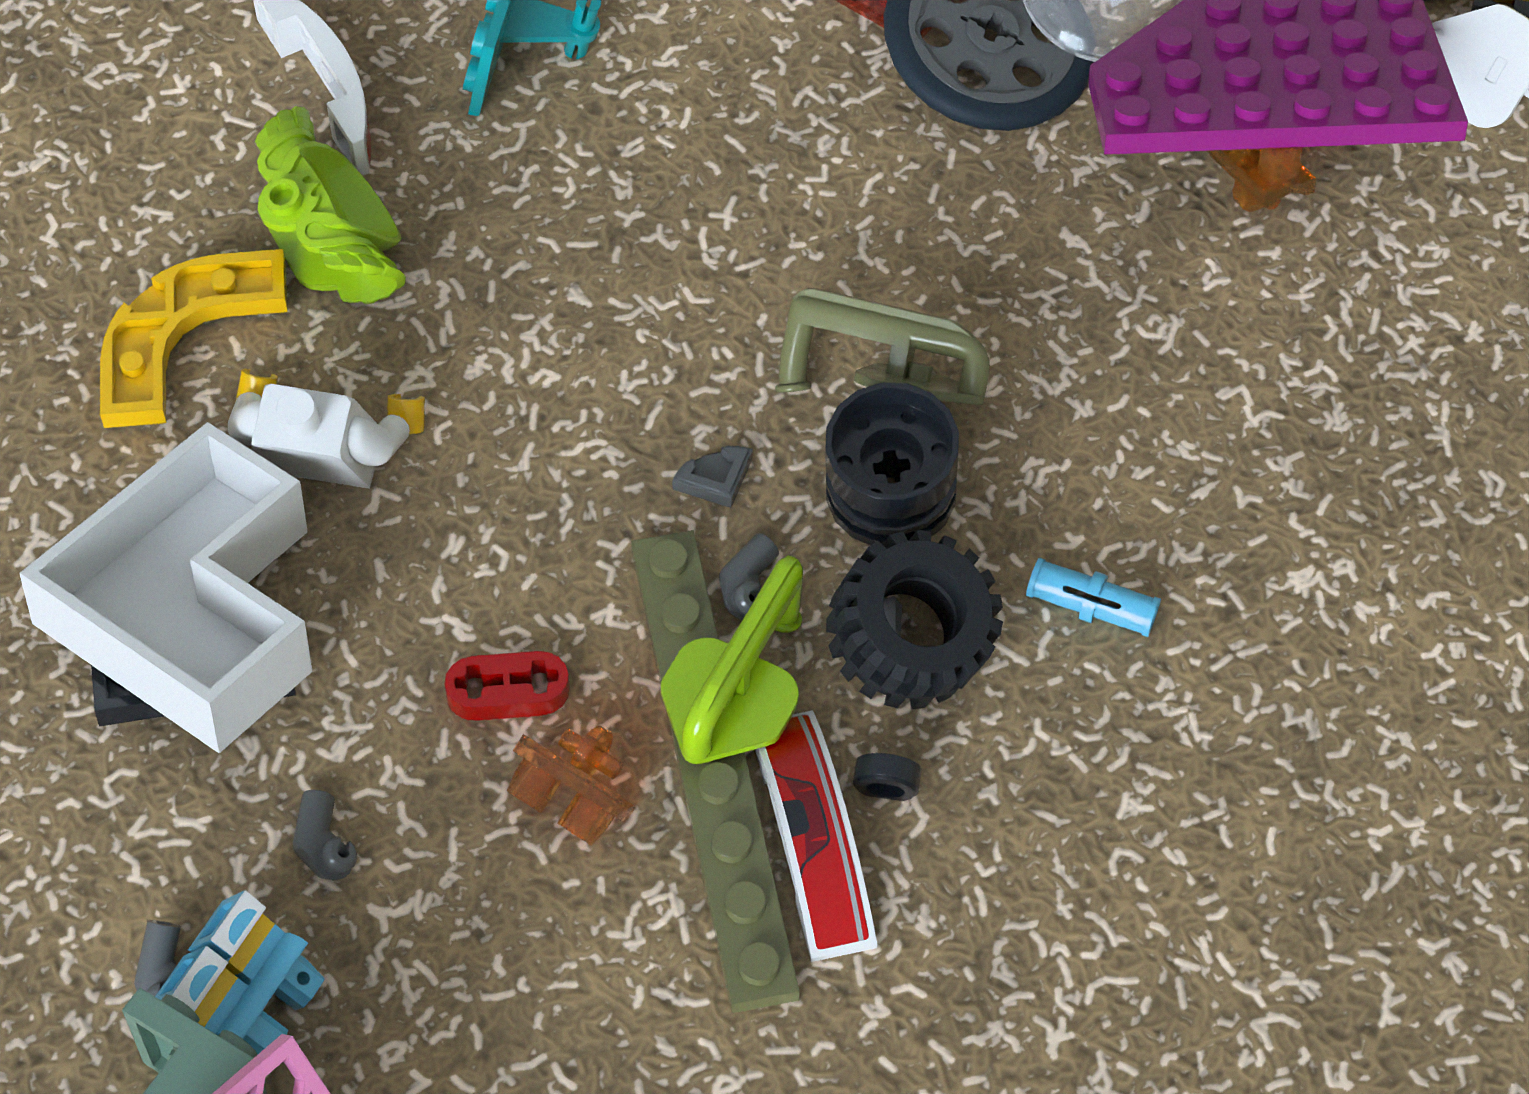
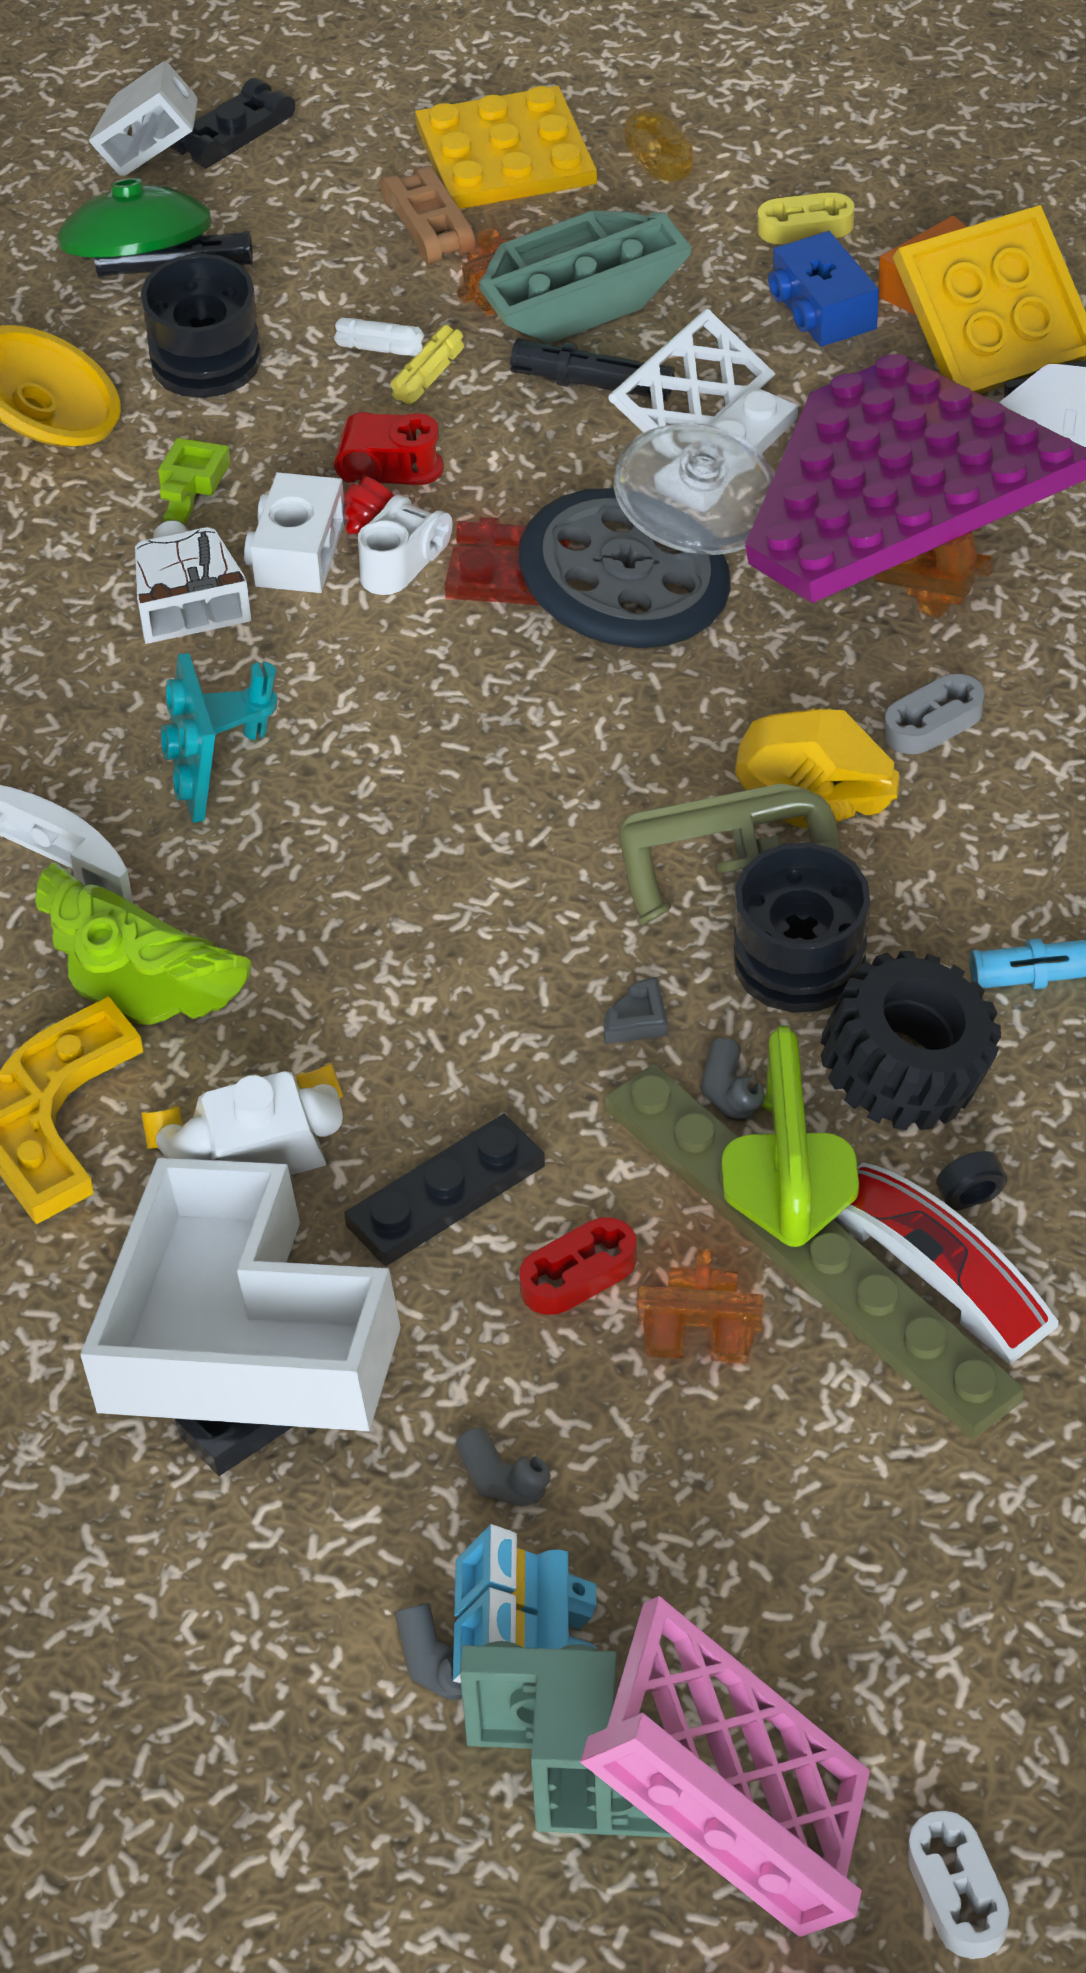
camera: 25 degrees left, 10 degrees down
(446, 559) = (444, 1189): none -> black plate
(1023, 312) = (813, 751): none -> yellow helmet
(1174, 307) = (938, 718): none -> light grey beam

